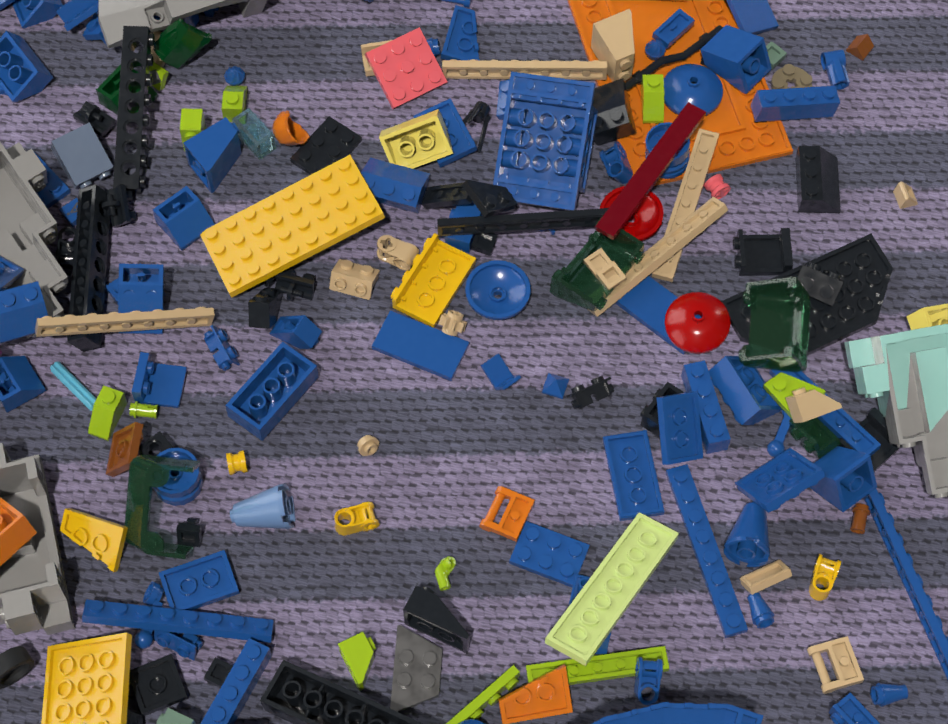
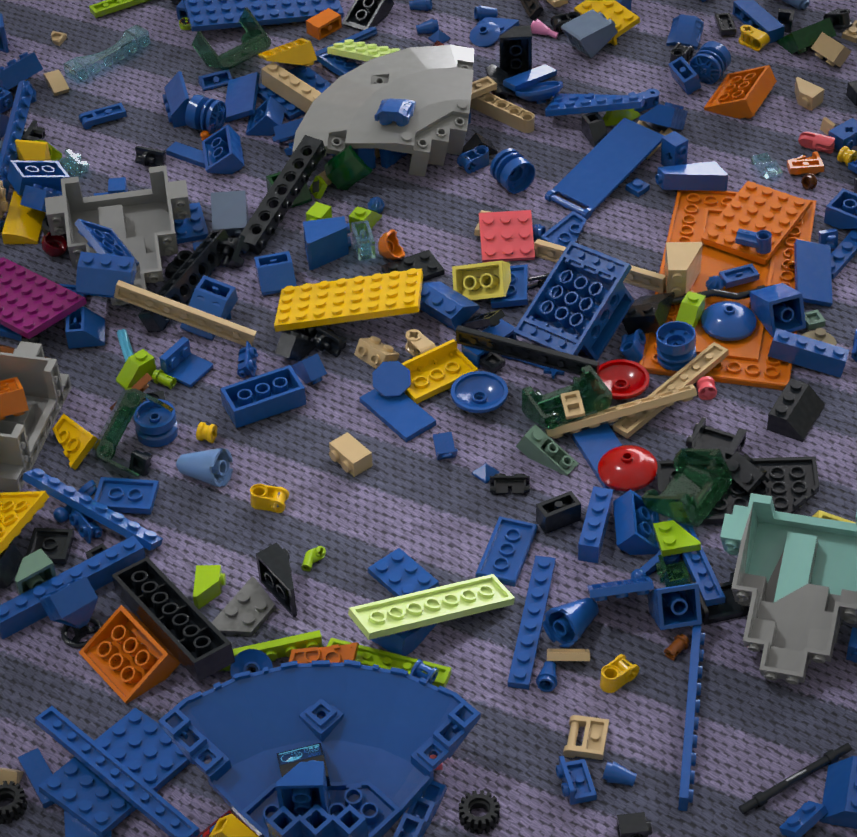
camera: 30 degrees right, 20 degrees down
(98, 119) = (254, 195): black hips -> none
(367, 445) = (311, 452): tan plate -> none
(398, 312) = (391, 379): none -> blue piece
(407, 425) = (350, 454): none -> tan brick
(452, 322) = (430, 402): tan gear -> none
(489, 198) = (508, 325): black wing -> none
(513, 517) = (394, 539): orange plate -> none
(604, 335) = (544, 450): none -> sand green slope
(650, 171) = (647, 346): dark red tile -> none
(679, 427) = (560, 524): blue plate -> none
(810, 404) = (679, 544): tan slope -> none

